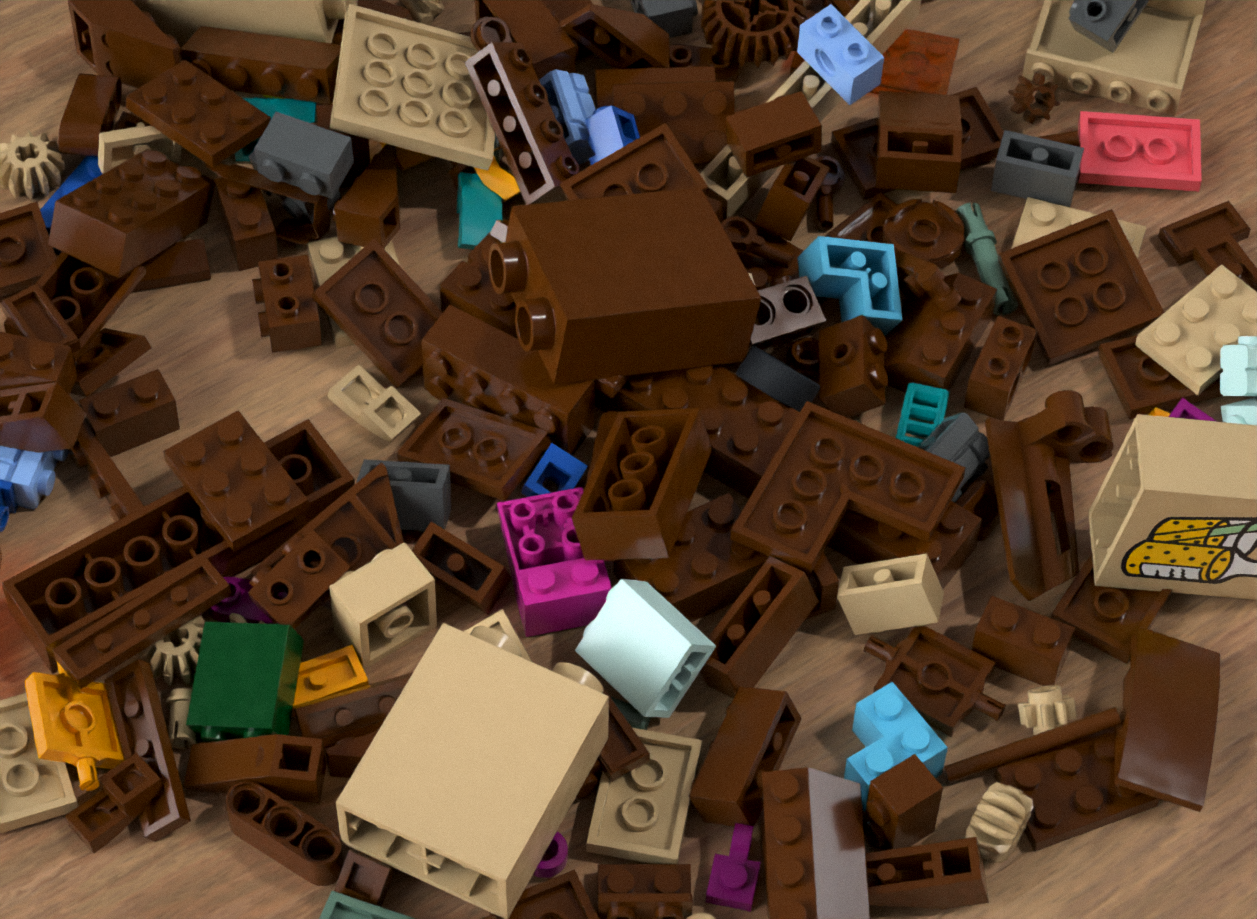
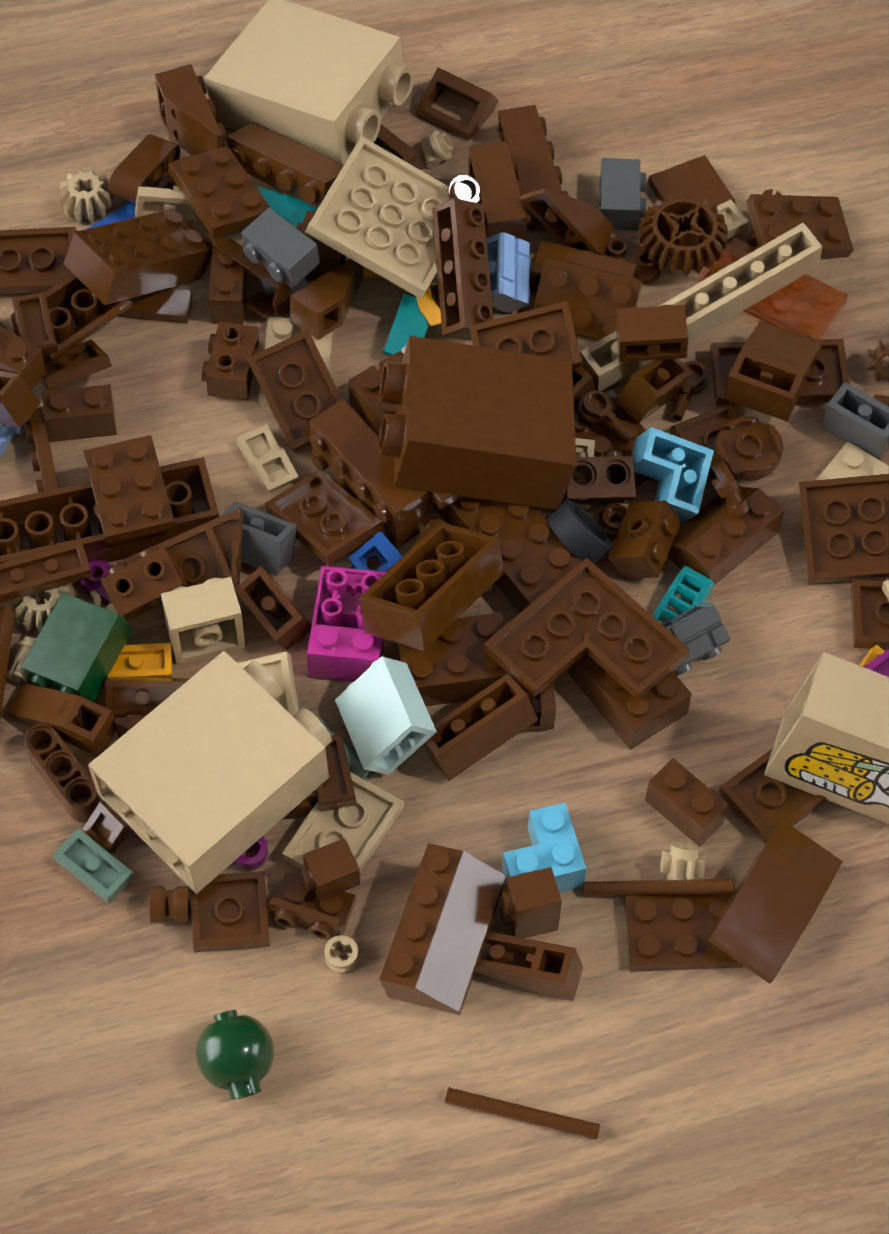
camera: 20 degrees right, 5 degrees up
(610, 131) = (529, 293): brick -> none
(656, 841) = (330, 870): none -> reddish brown brick
(734, 876) = (384, 913): magenta plate -> none
(749, 742) = (433, 817): reddish brown brick -> none
(840, 54) = (729, 283): light blue brick -> none
(890, 594) = (594, 732): tan brick -> none
(937, 677) = (607, 809): reddish brown plate -> none
(981, 246) = (792, 471): sand green pin -> none
(982, 502) = (701, 683): reddish brown plate -> none
(1000, 368) = (763, 575): reddish brown brick -> none
(1000, 821) = (604, 940): tan gear -> none
(1034, 478) = (748, 668): reddish brown panel -> none

